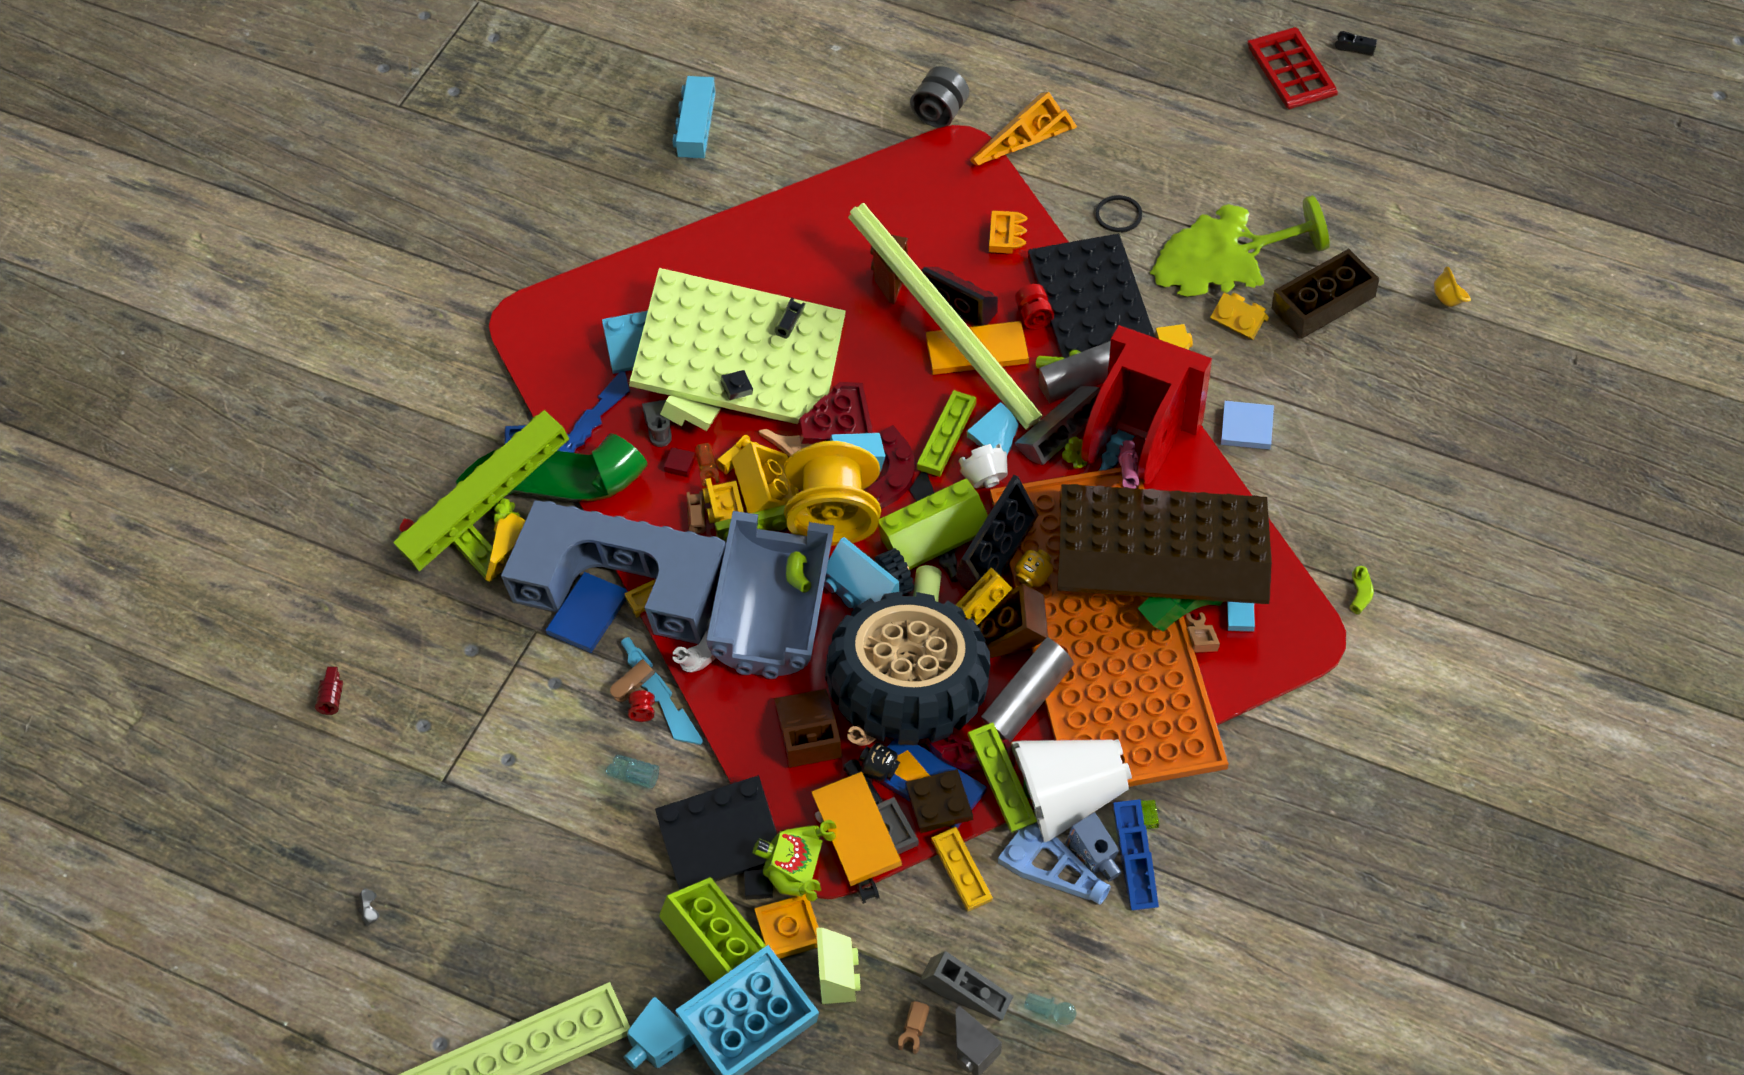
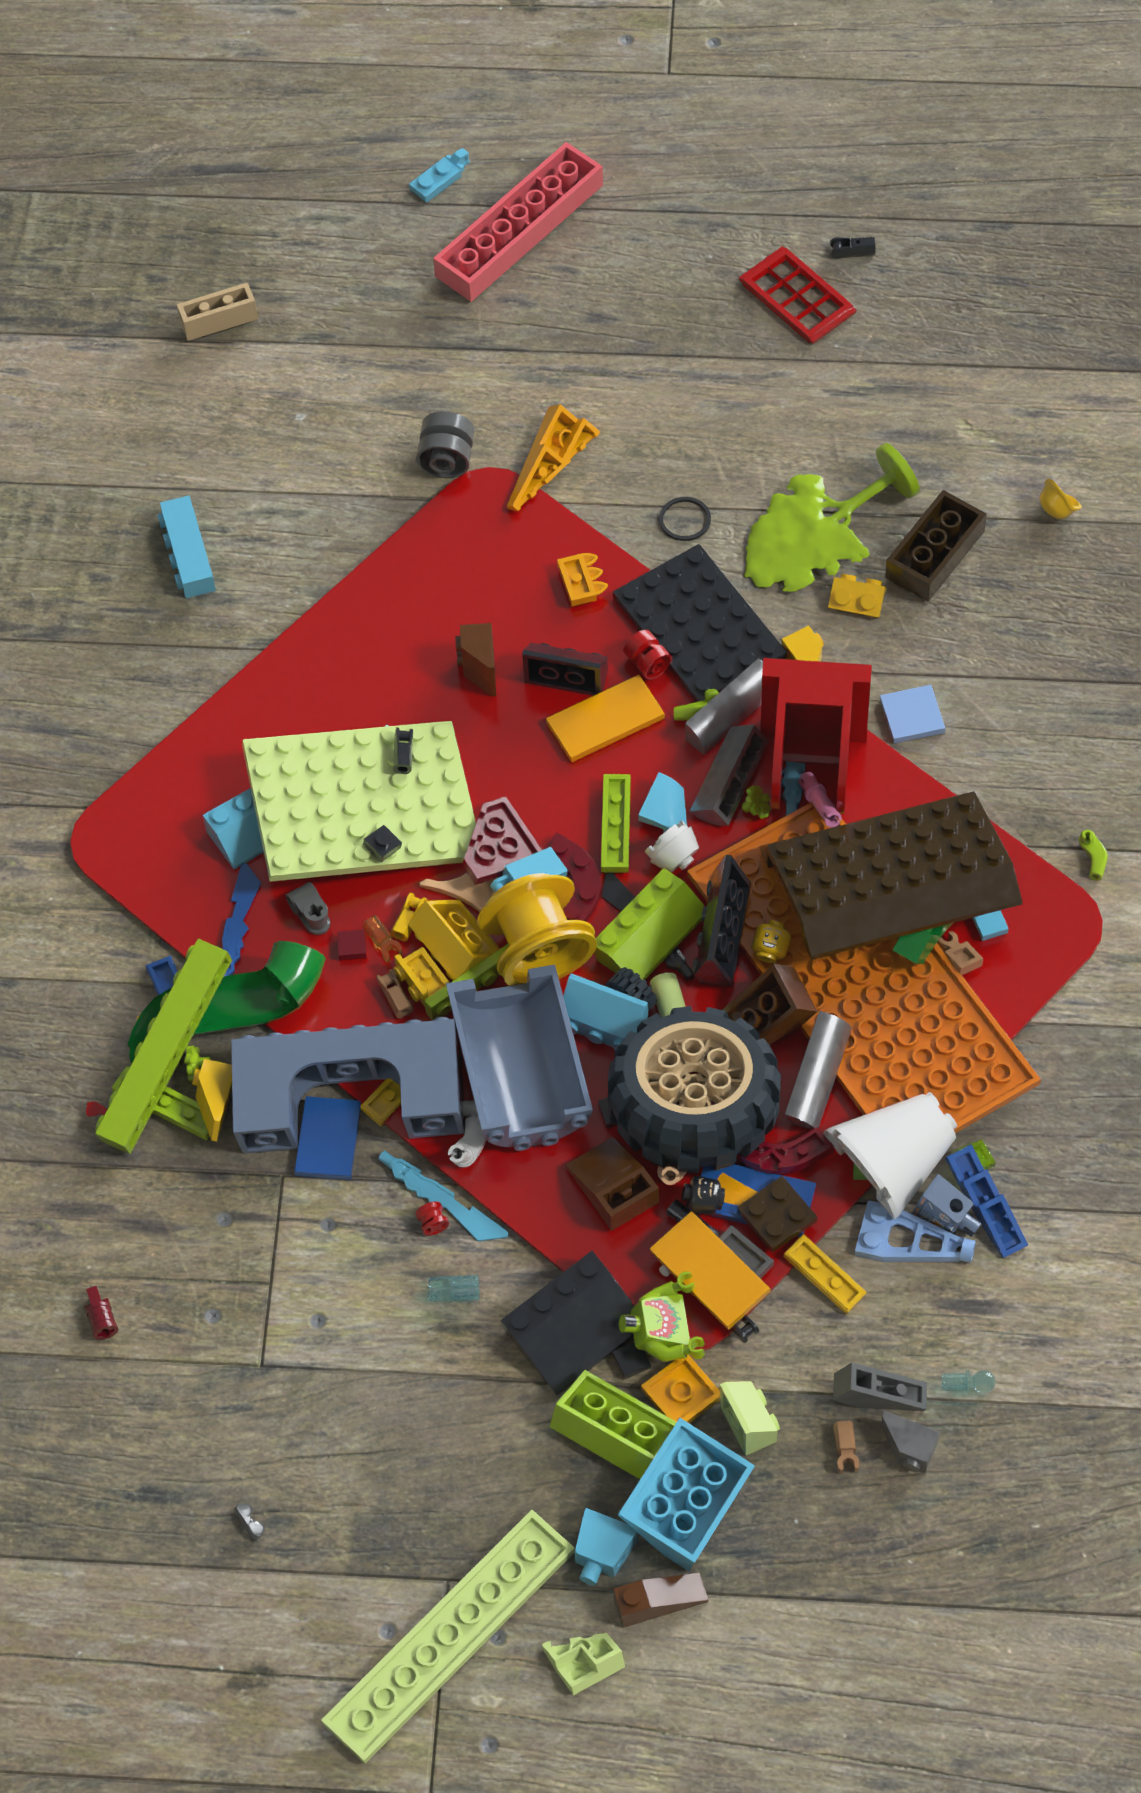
camera: 20 degrees left, 5 degrees up
(631, 681) = (410, 1195): medium nougat bar -> none
(695, 412) = (345, 886): yellowish green slope -> none
(795, 573) = (529, 1025): lime arm -> none
(945, 316) = (565, 697): yellowish green axle -> none
(984, 596) = (736, 988): yellow bracket -> none
(1002, 777) = (830, 1169): lime plate -> none

